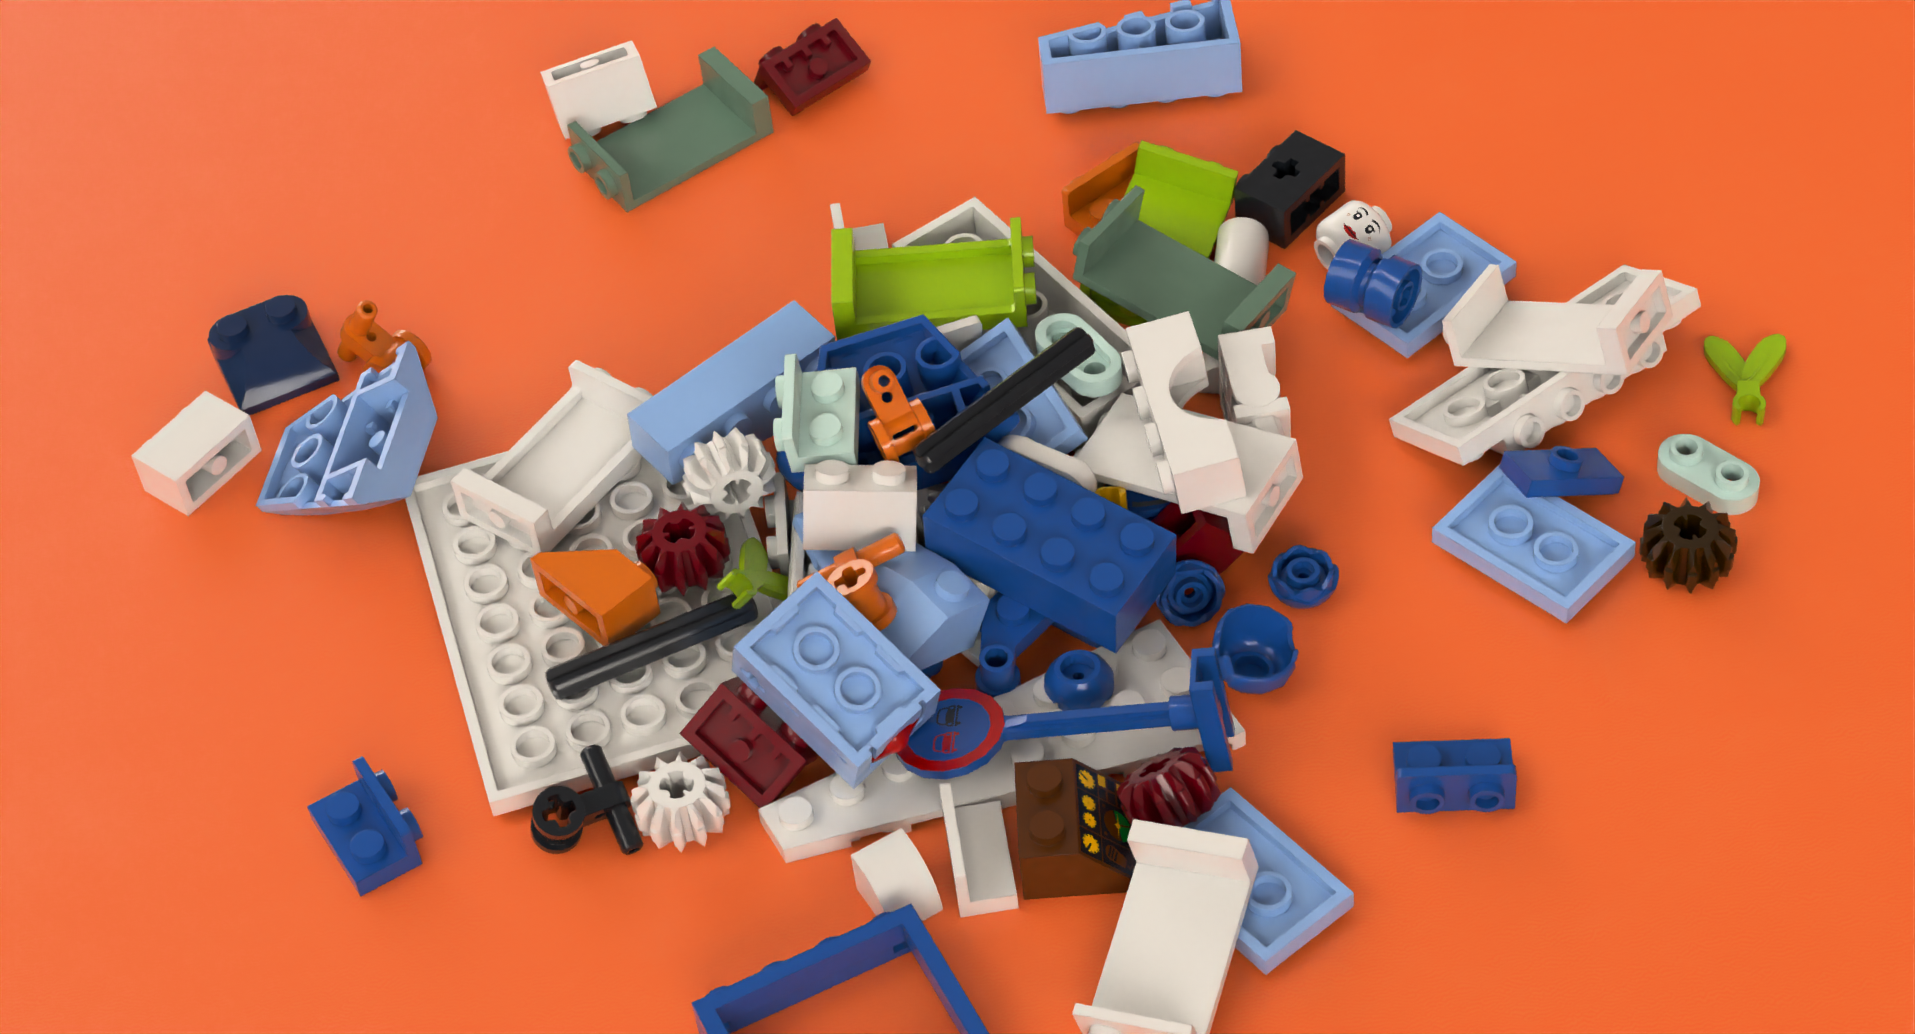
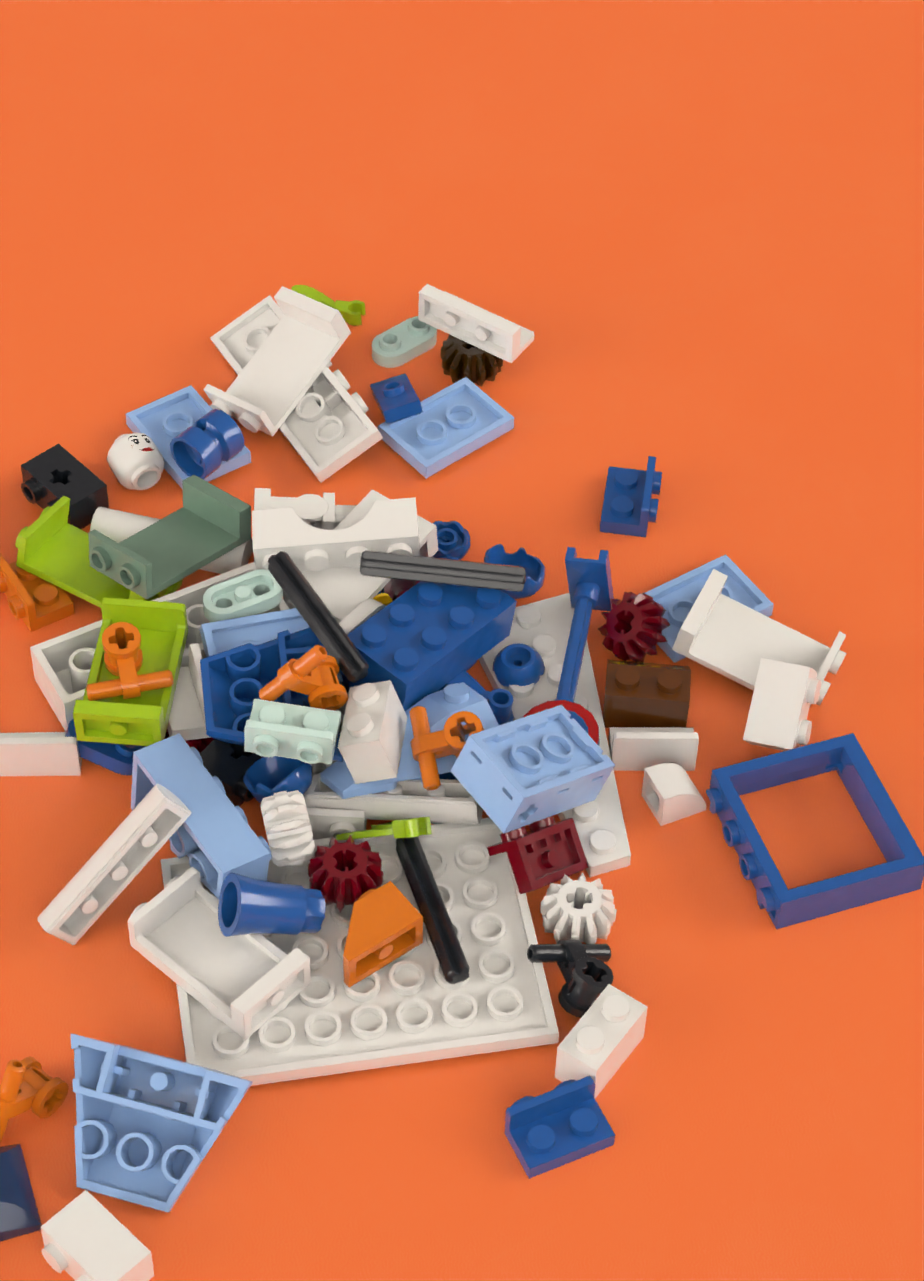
camera: 90 degrees left, 0 degrees up
(478, 846) = (602, 1039): none -> white brick
(607, 477) = (268, 907): none -> blue plant
(658, 335) = (114, 865): none -> white brick
(928, 265) = (124, 659): none -> orange piece
(1039, 969) = (781, 705): none -> white brick
(1116, 512) = (442, 571): none -> axle
(1719, 516) = (473, 324): none -> white panel

